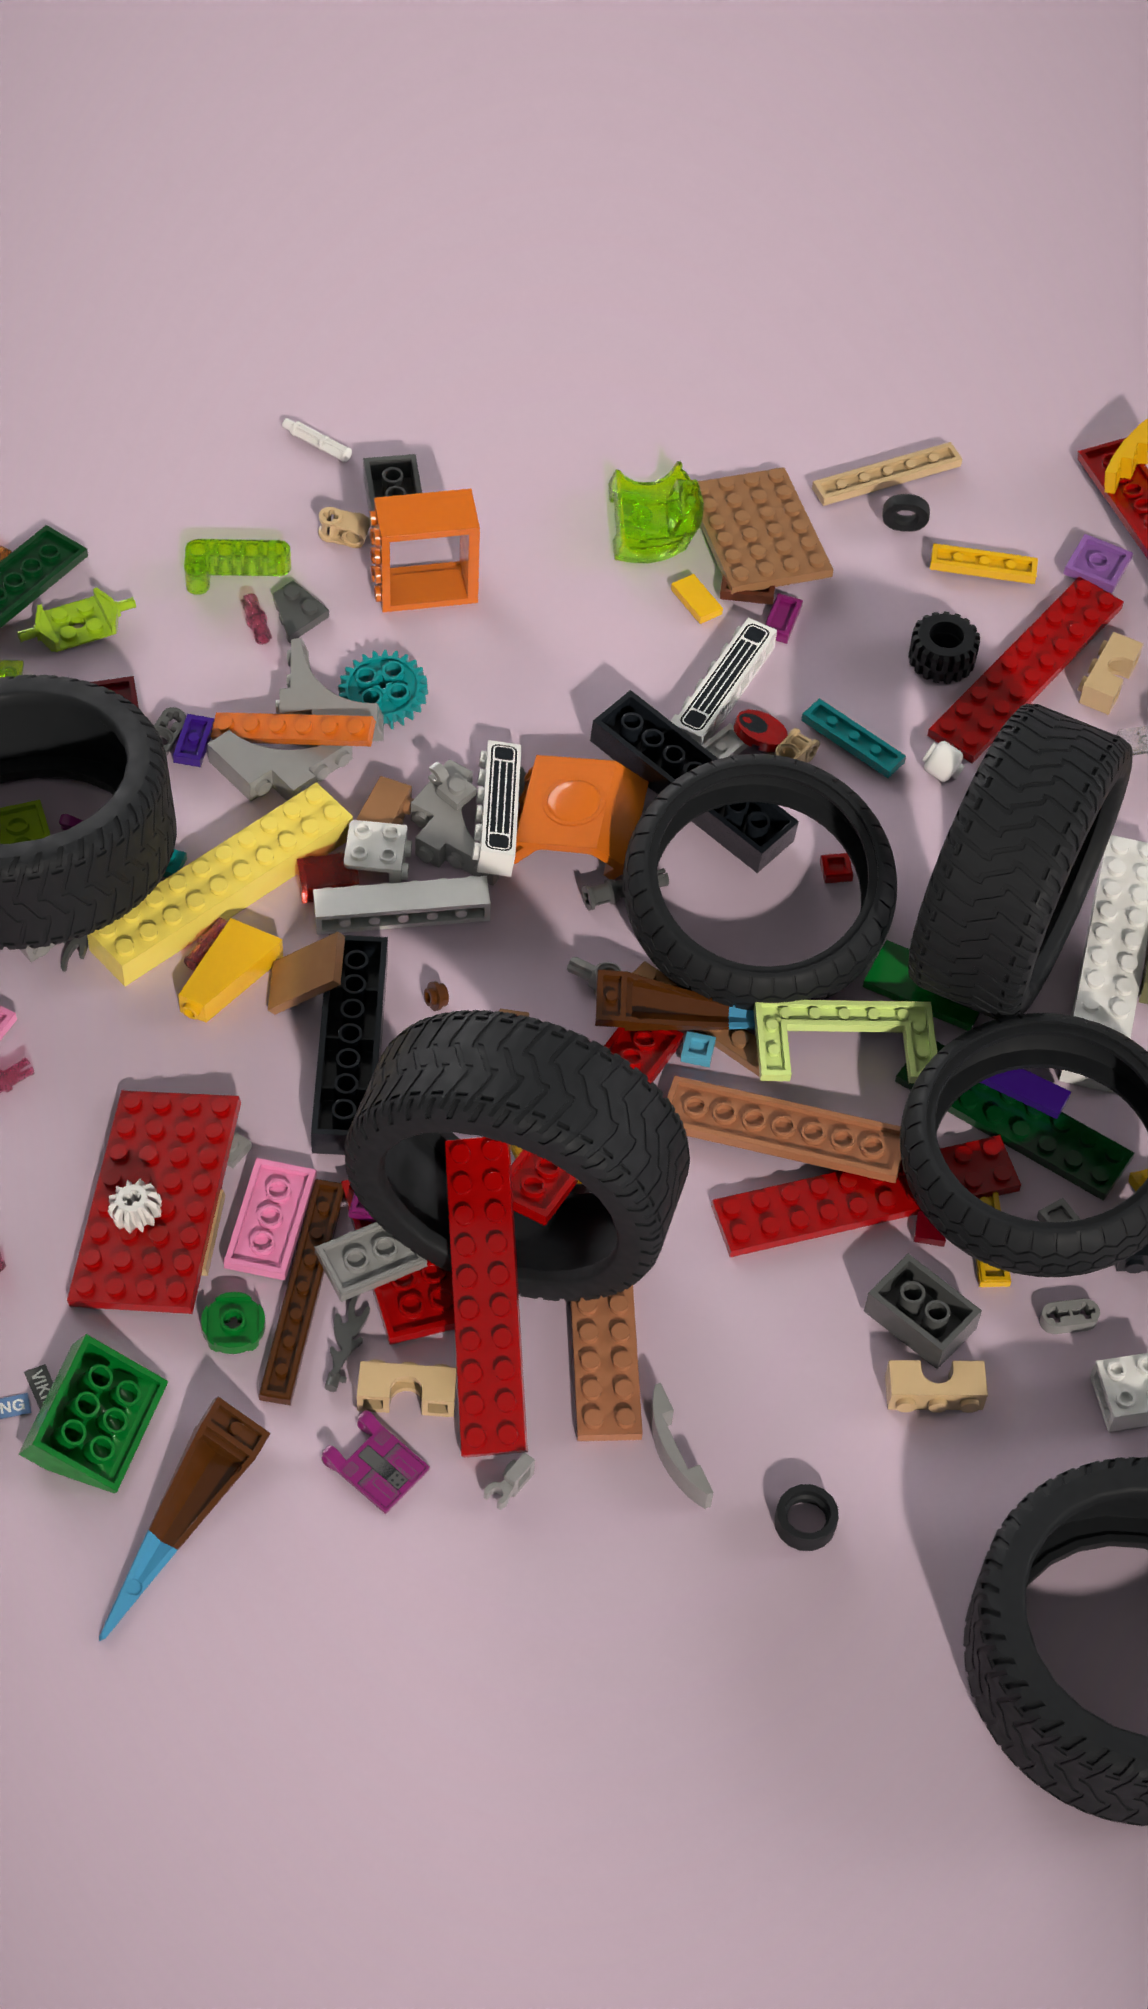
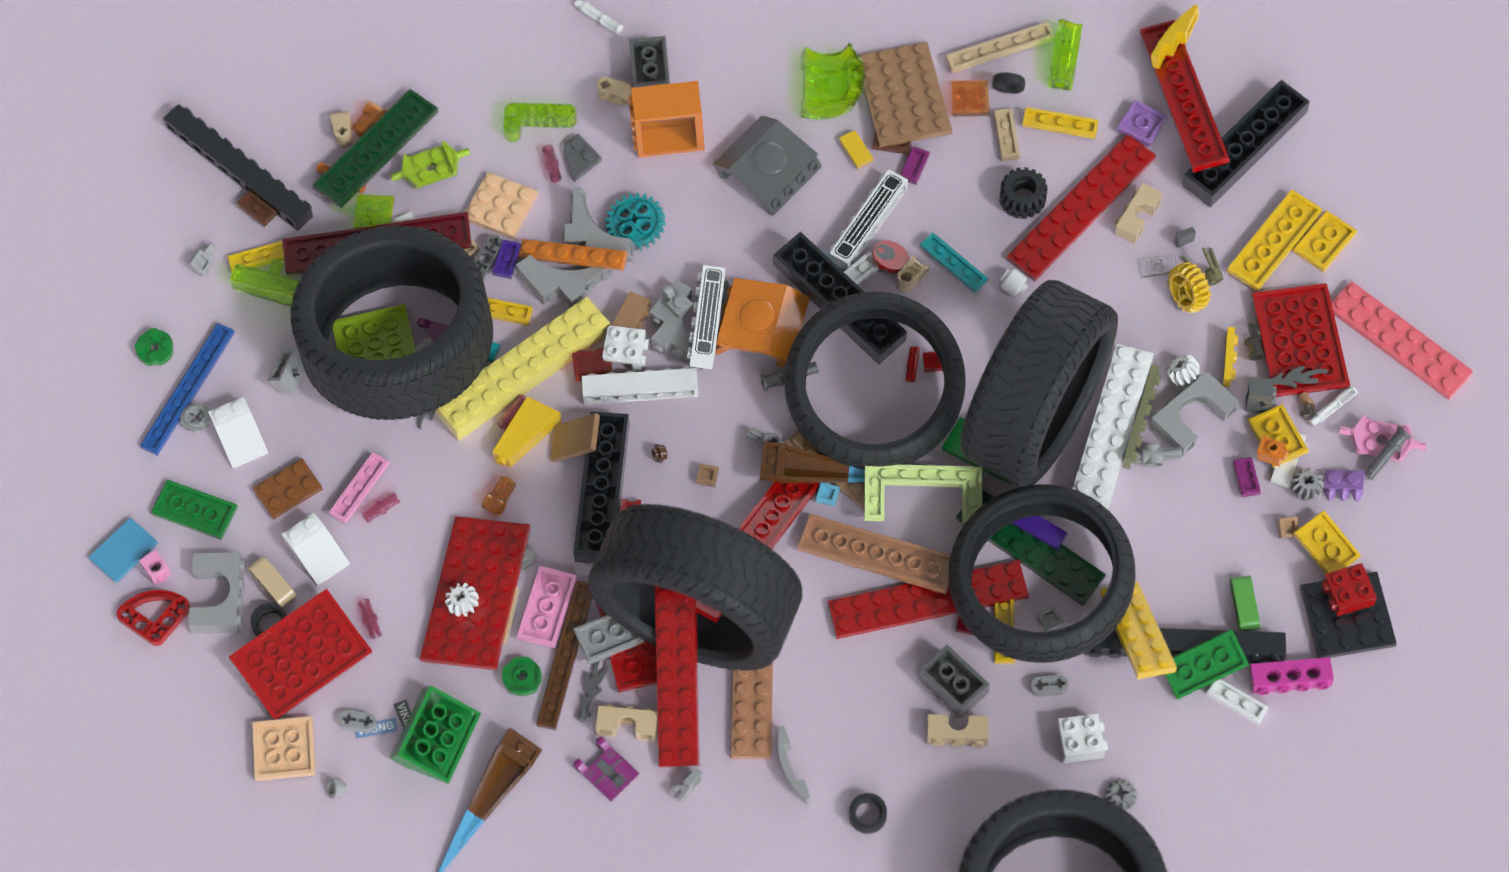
camera: 10 degrees right, 10 degrees up
(183, 672) = (501, 205): none -> light nougat plate
(187, 1065) = (497, 500): none -> clear orange piece
(203, 810) = (510, 311): none -> yellow tile
(576, 610) = (769, 162): none -> dark grey panel
(807, 871) = (912, 364): none -> red axle
(852, 534) = (970, 98): none -> clear orange plate
(908, 579) = (1006, 134): none -> tan tile
(979, 482) = (1065, 55): none -> clear neon green piece

